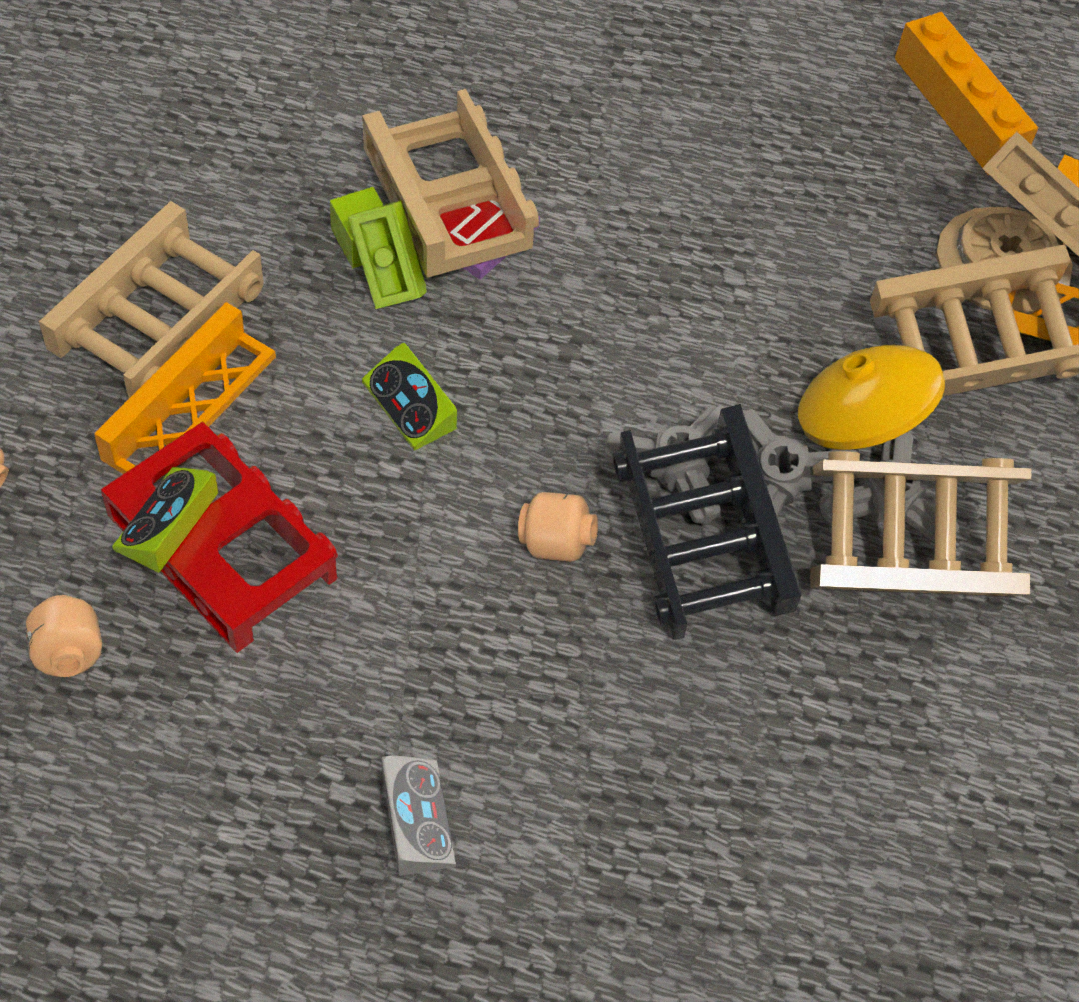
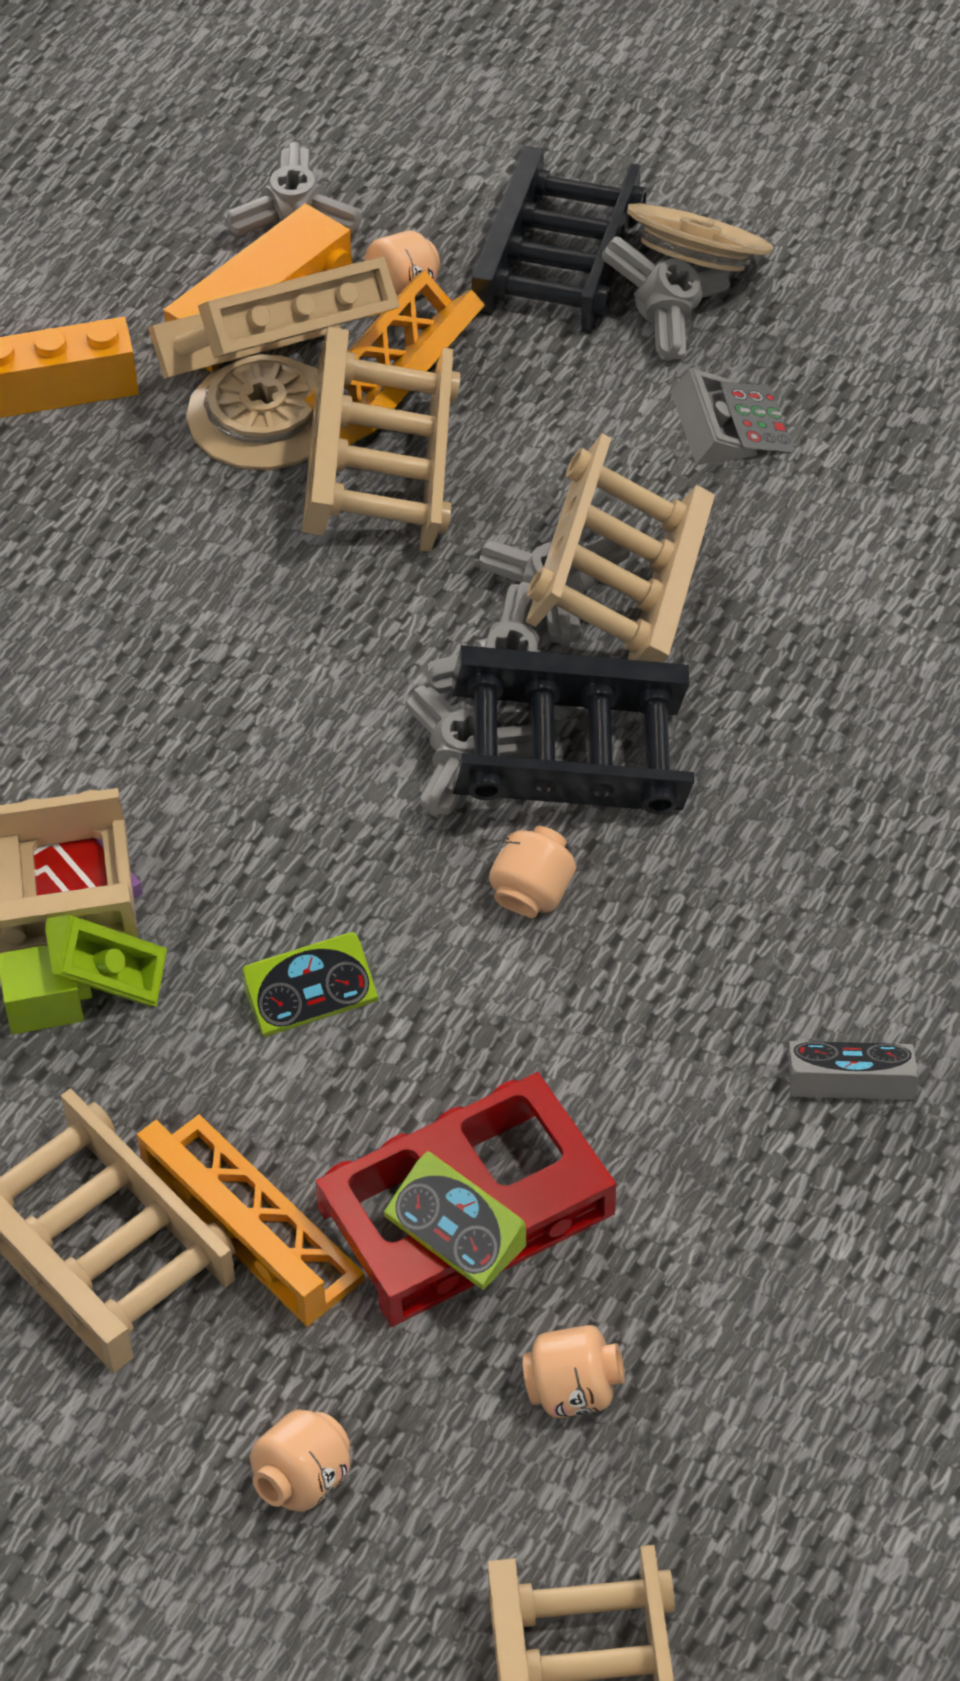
camera: 70 degrees left, 5 degrees down
(871, 397) = (464, 569): yellow dish -> none

